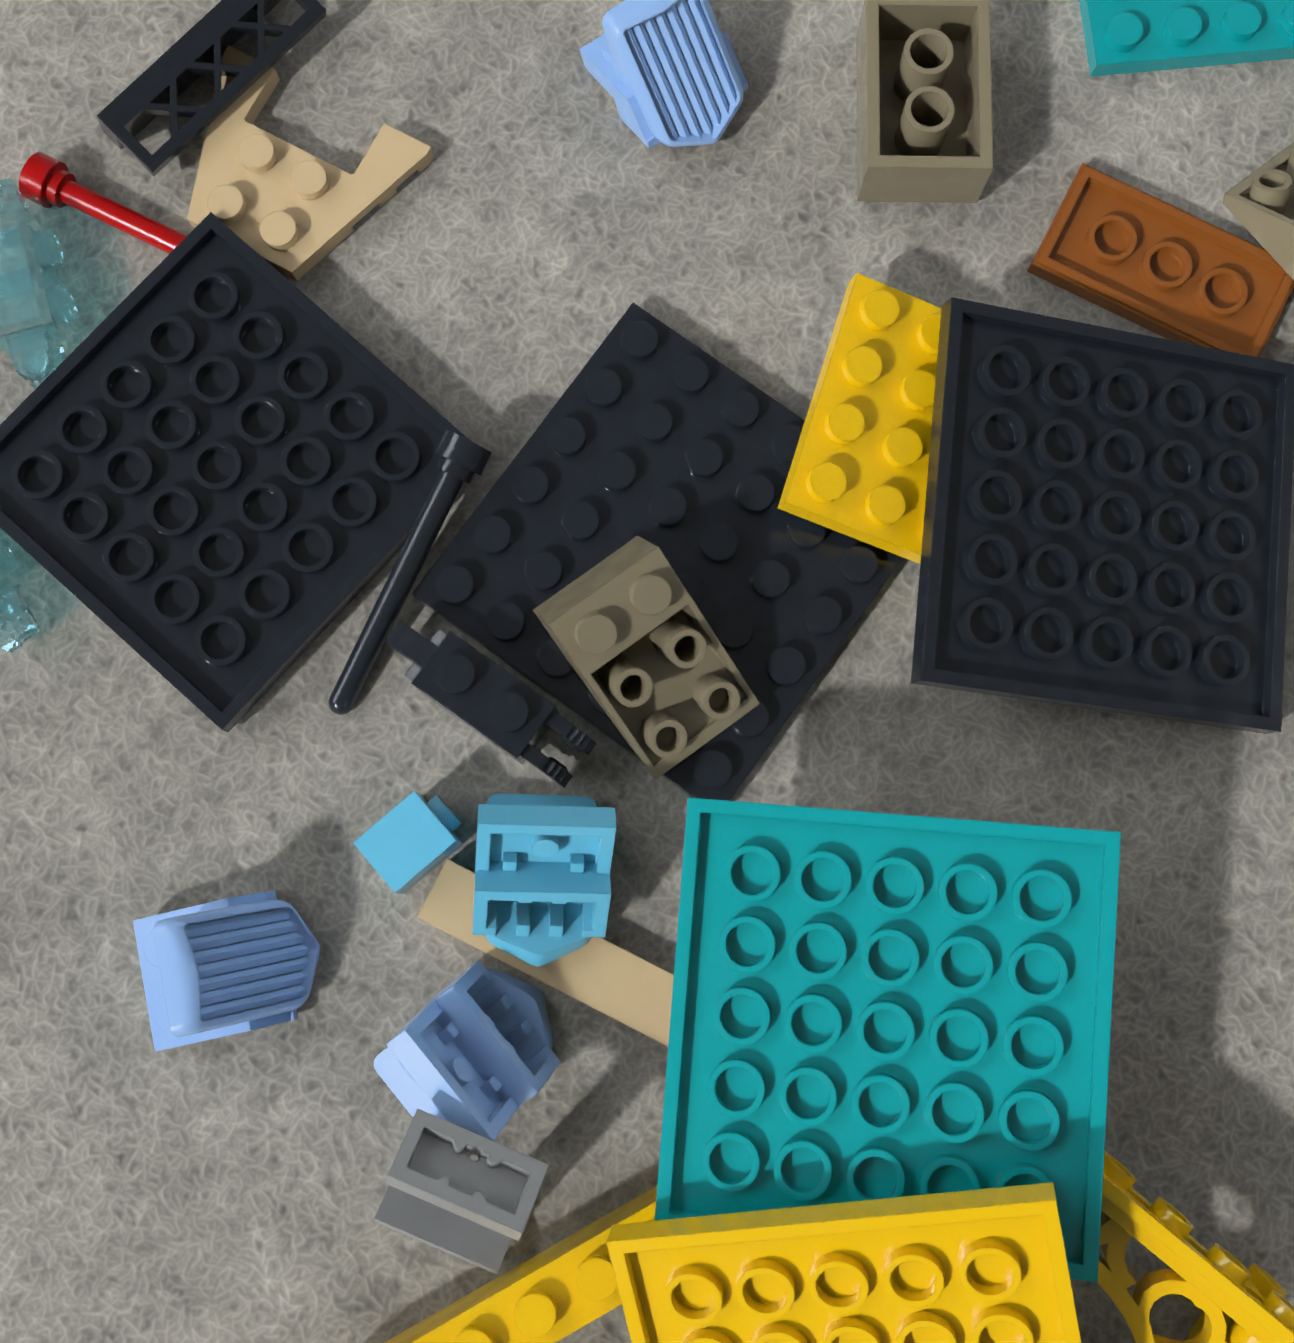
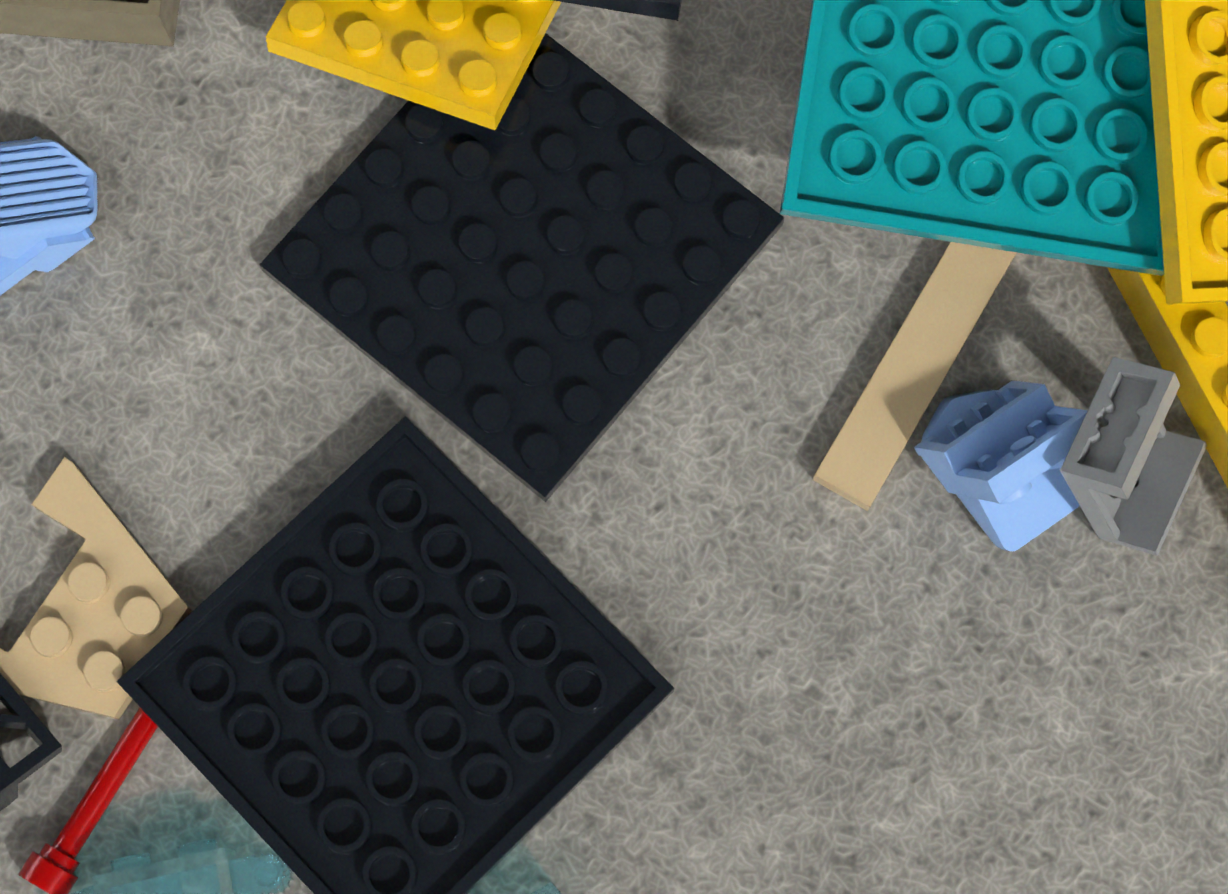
camera: 85 degrees left, 5 degrees down
(224, 968) = (913, 696): light blue piece -> none
(410, 840) = (796, 505): medium azure brick -> none
(458, 464) = (421, 434): black piece -> none
(487, 698) = (660, 422): black hinge -> none
(542, 873) = (833, 372): medium azure piece -> none
(647, 655) = (627, 263): dark tan slope -> none

